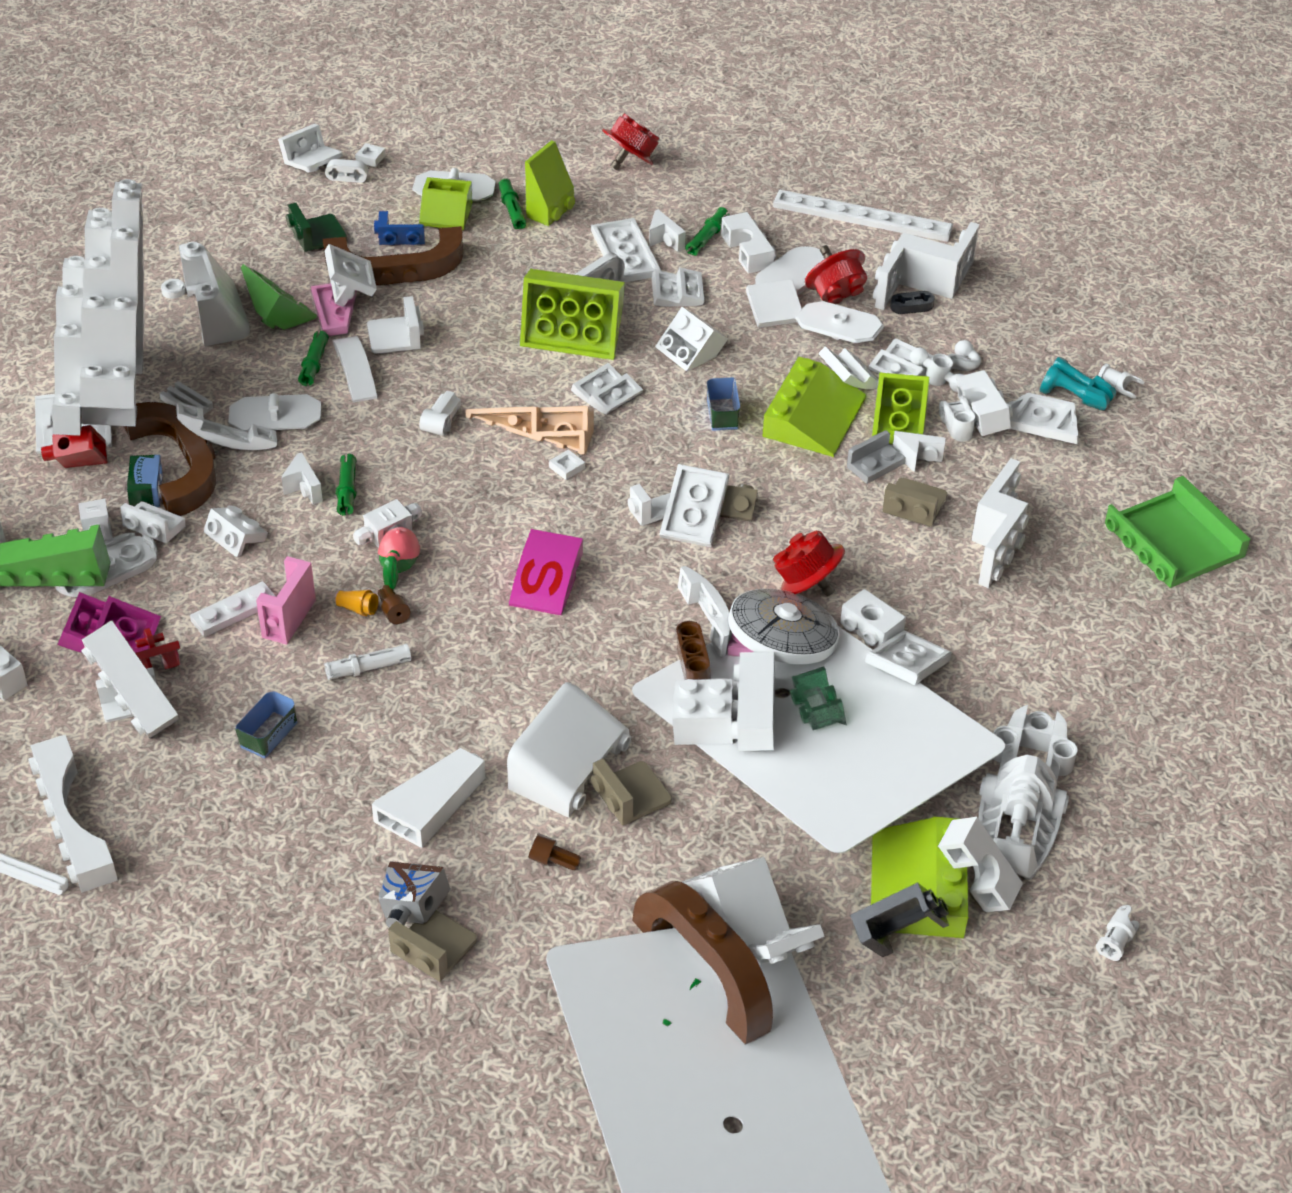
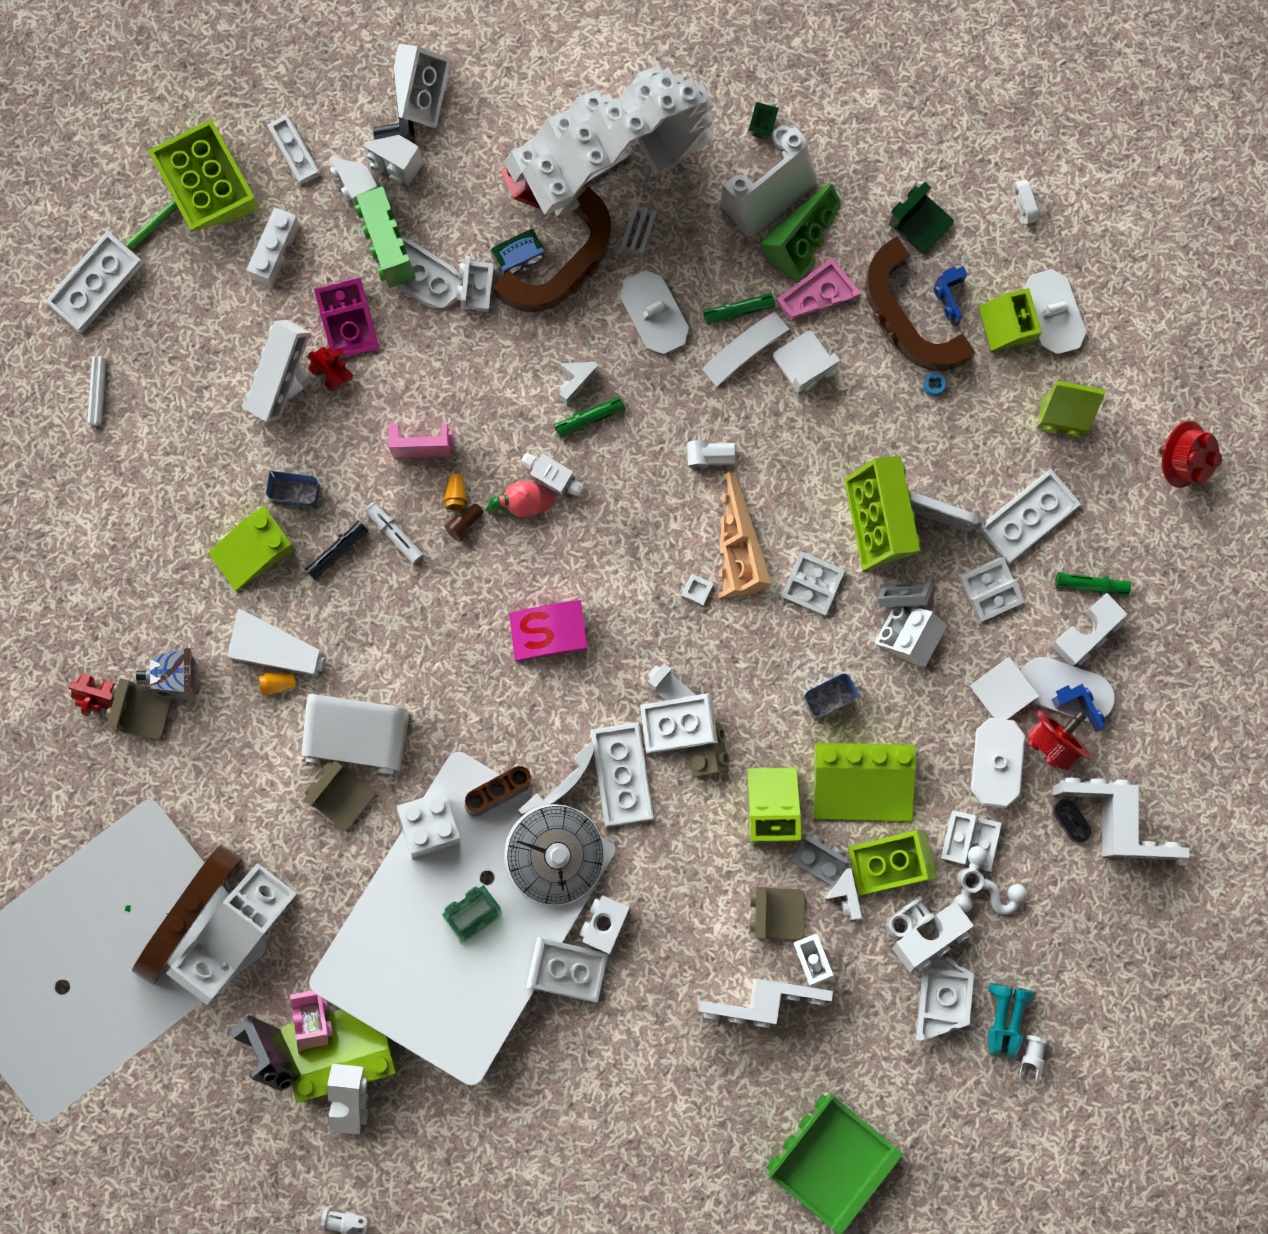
camera: 65 degrees right, 35 degrees up
(88, 854) = (191, 358): white arch -> none
(95, 513) = (452, 241): white piece -> none
(153, 292) = (763, 120): none -> dark green bracket
(229, 610) = (411, 399): white plate -> none
(233, 529) = (497, 353): white bracket -> none
(256, 439) = (599, 288): white slope -> none
(306, 149) = (1035, 153): white bracket -> none
(307, 781) = (251, 548): none -> lime slope
(348, 274) = (844, 289): white bracket -> none
(348, 691) = (337, 549): none -> black pin
(370, 154) = (1064, 210): white plate -> none
(390, 982) = (91, 698): none -> red hips
(470, 267) = (932, 377): none -> dark azure bush
(472, 811) = (275, 683): none -> light orange cone
(510, 198) = (1057, 372): green pin -> none
(545, 850) = (255, 755): reddish brown piece -> none
(657, 323) = (906, 594): none -> light grey wing
(666, 230) = (1071, 538): white slope -> none
(724, 568) = (622, 775): none -> white tile
(755, 701) = (451, 863): white brick -> none
(807, 257) = (1085, 698): none -> blue bracket
(808, 562) = (636, 851): red piece -> none
(811, 469) = (773, 805): none -> lime slope
(850, 369) = (933, 796): white slope -> none
(863, 215) = (1196, 726): white tile -> none
(873, 881) = (309, 1020): none -> bright pink window
(974, 477) = (814, 960): none -> white slope
(1028, 787) = (449, 1110): white piece -> none

